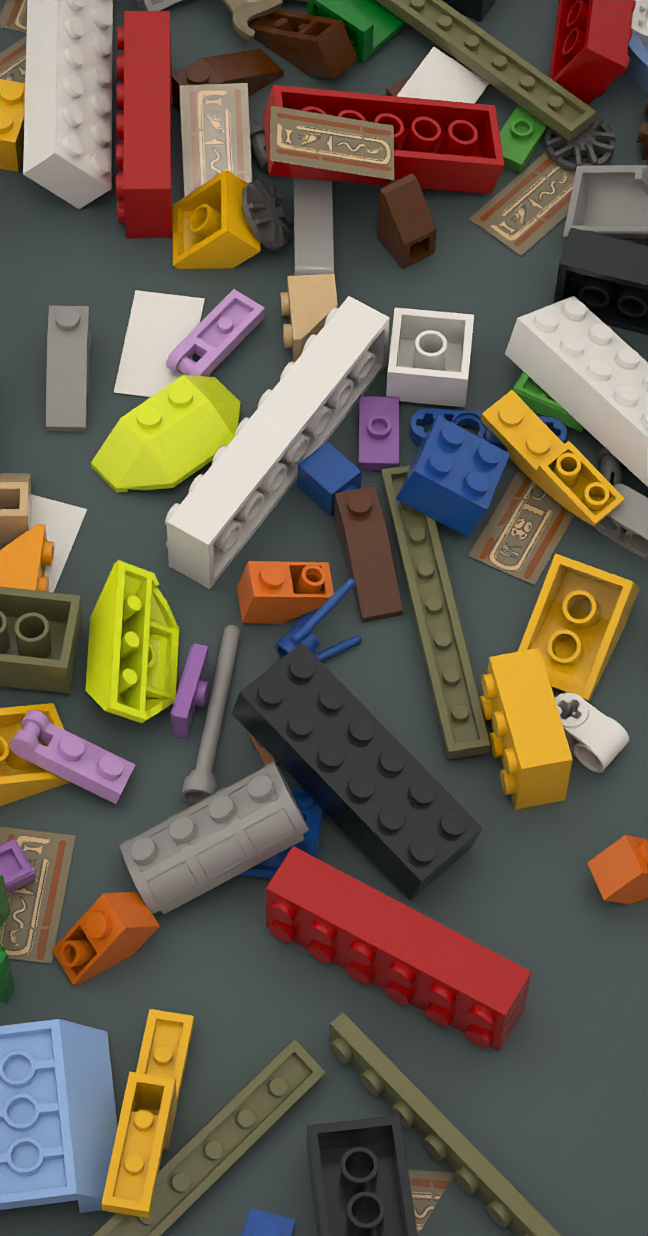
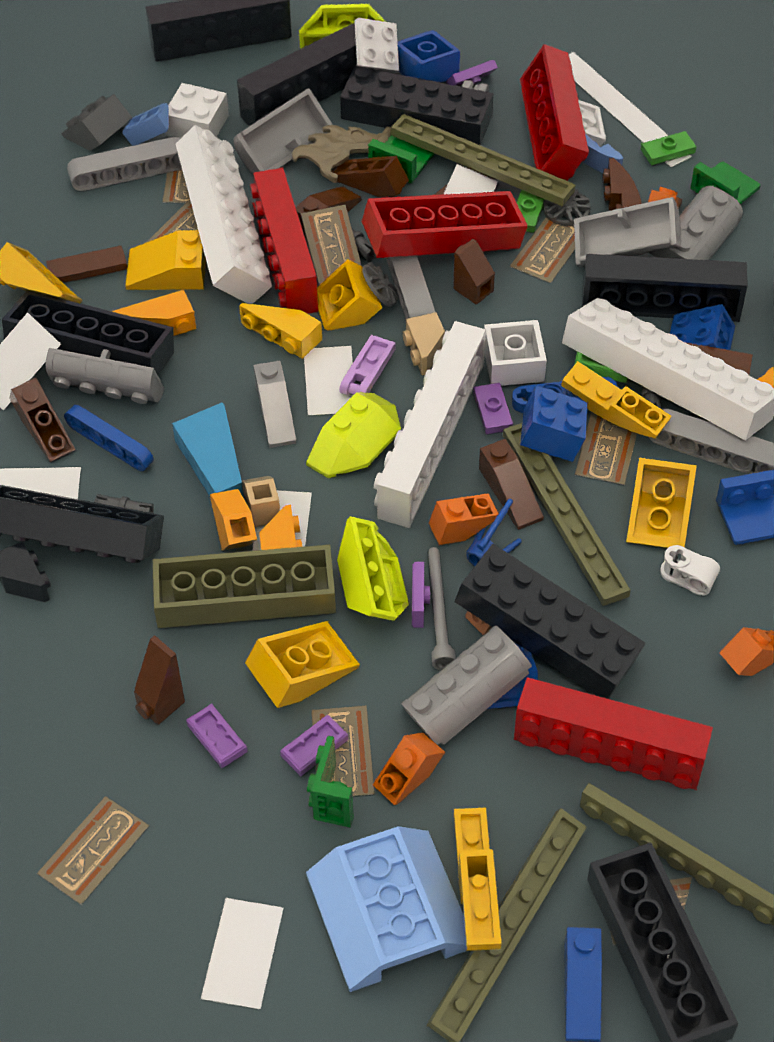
camera: 10 degrees left, 5 degrees down
(71, 757) = (351, 652): lavender plate -> none
(116, 254) = (286, 327): none -> yellow slope
(325, 474) = (467, 440): blue brick -> none
(332, 142) = (416, 228): sticker -> none
(526, 729) = (654, 574): yellow brick -> none

